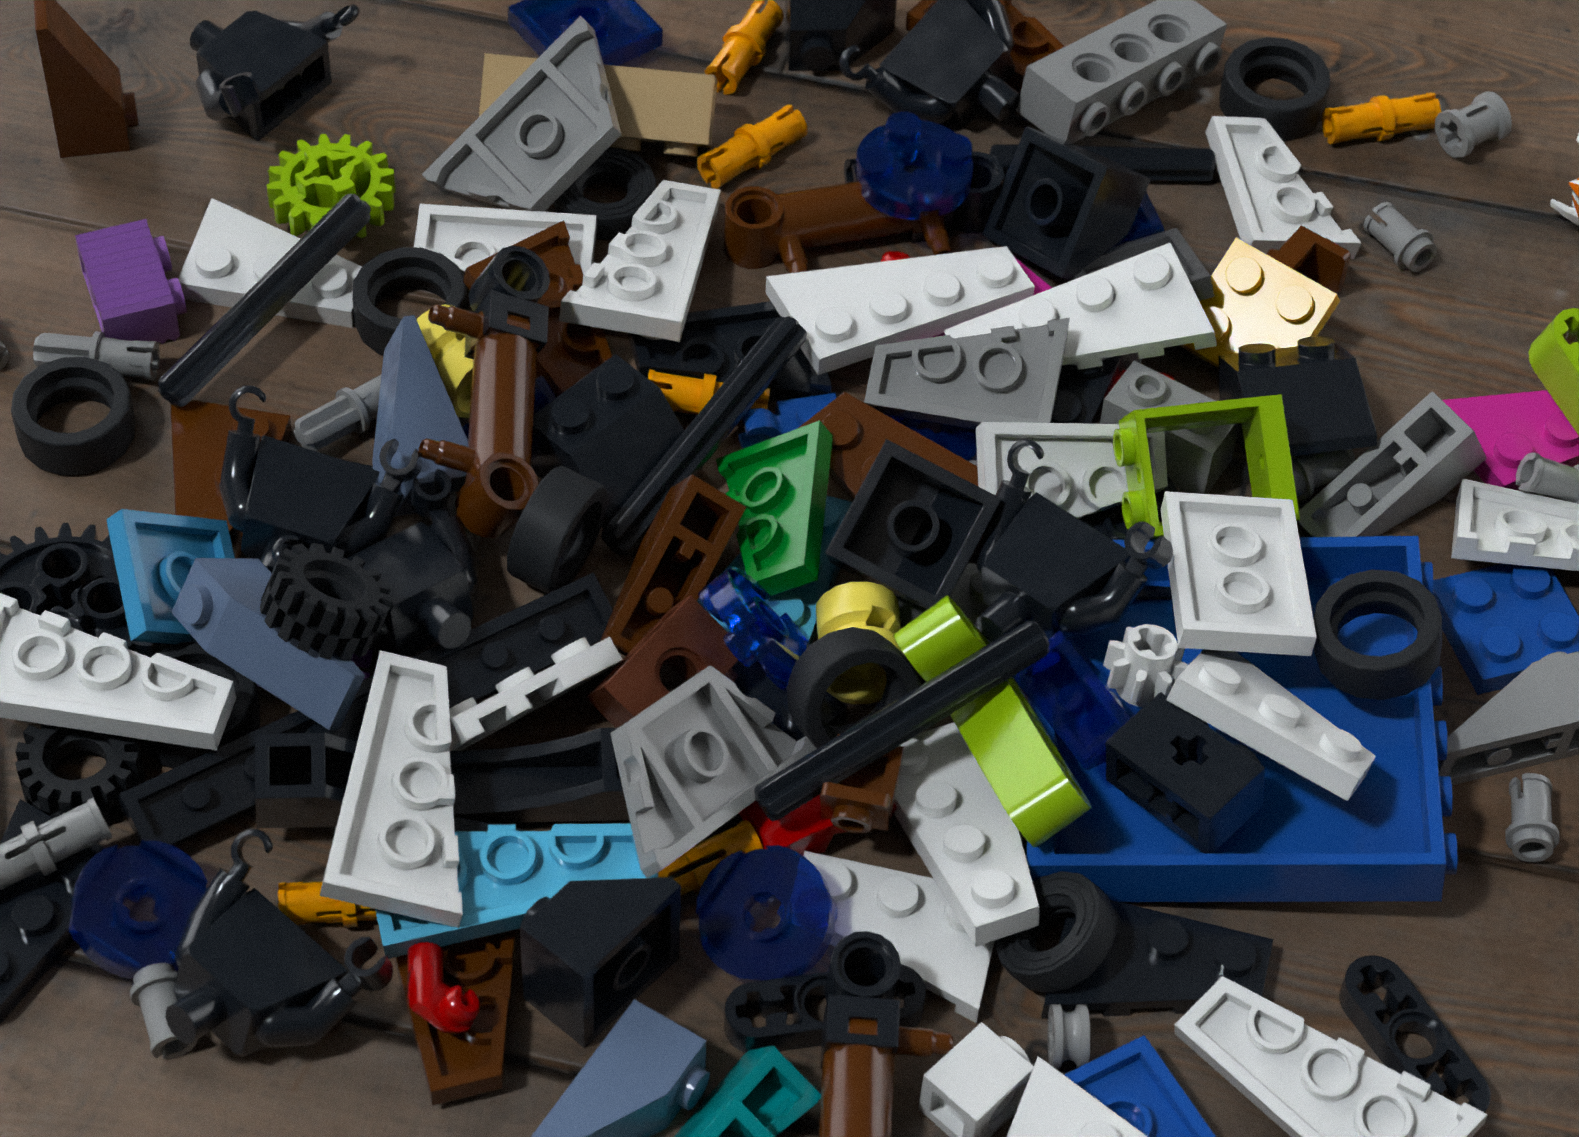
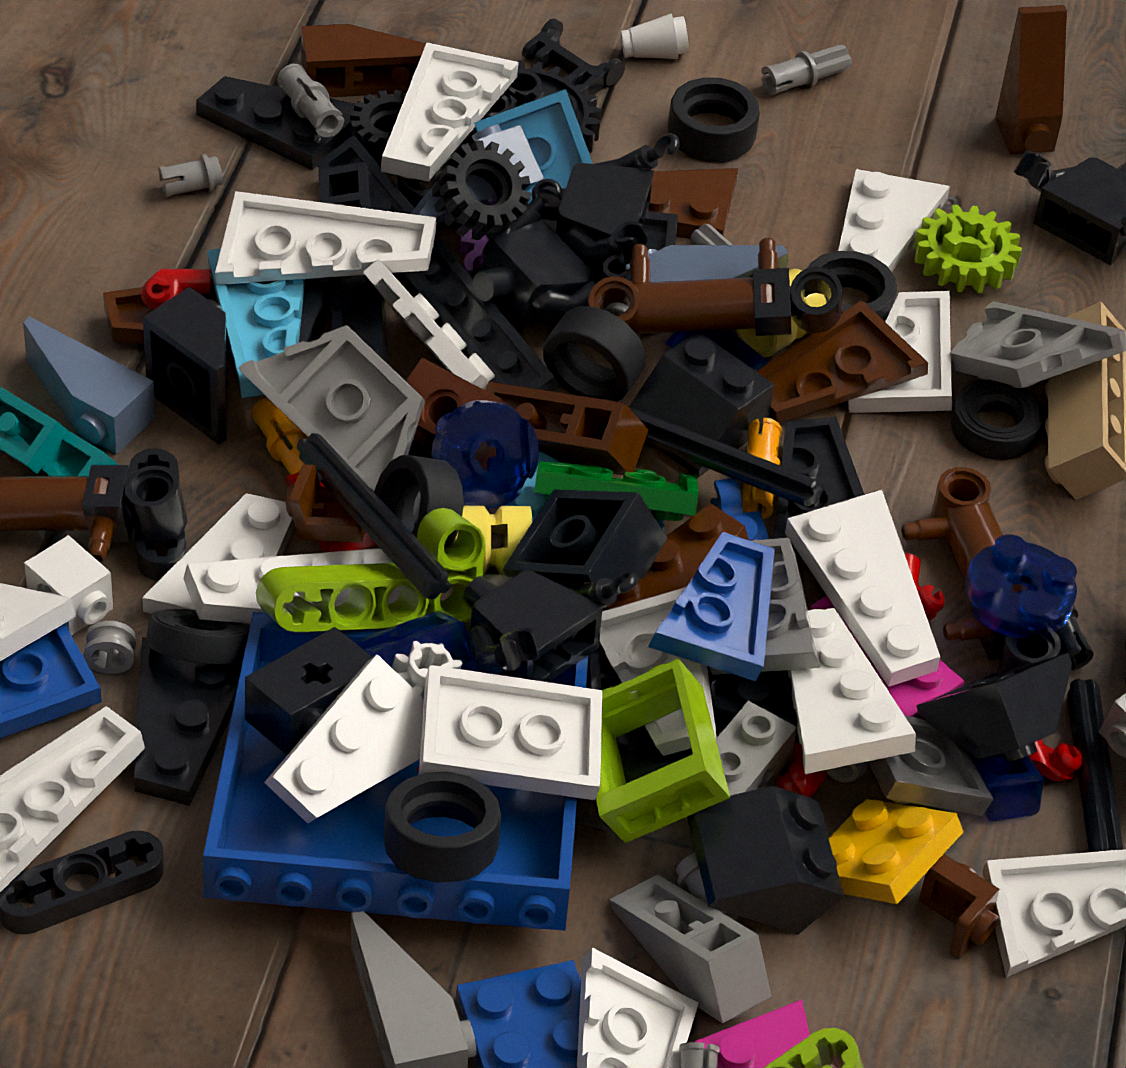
camera: 90 degrees right, 5 degrees down
(126, 356) = (776, 131): light grey axle -> none
(129, 282) = (845, 139): medium lavender brick -> none
(132, 872) = (273, 132): clear blue plate -> none
(257, 973) = (194, 197): black torso -> none
(264, 300) = (830, 202): black axle -> none
(651, 268) = (867, 417): white wing -> none
(752, 146) = (1070, 516): light orange pin -> none
(760, 877) = (232, 472): clear blue plate -> none
(1012, 390) = (723, 610): none -> wing
(1411, 247) = (1014, 1010): light grey pin -> none
(1532, 832) = (301, 1000): light grey pin -> none

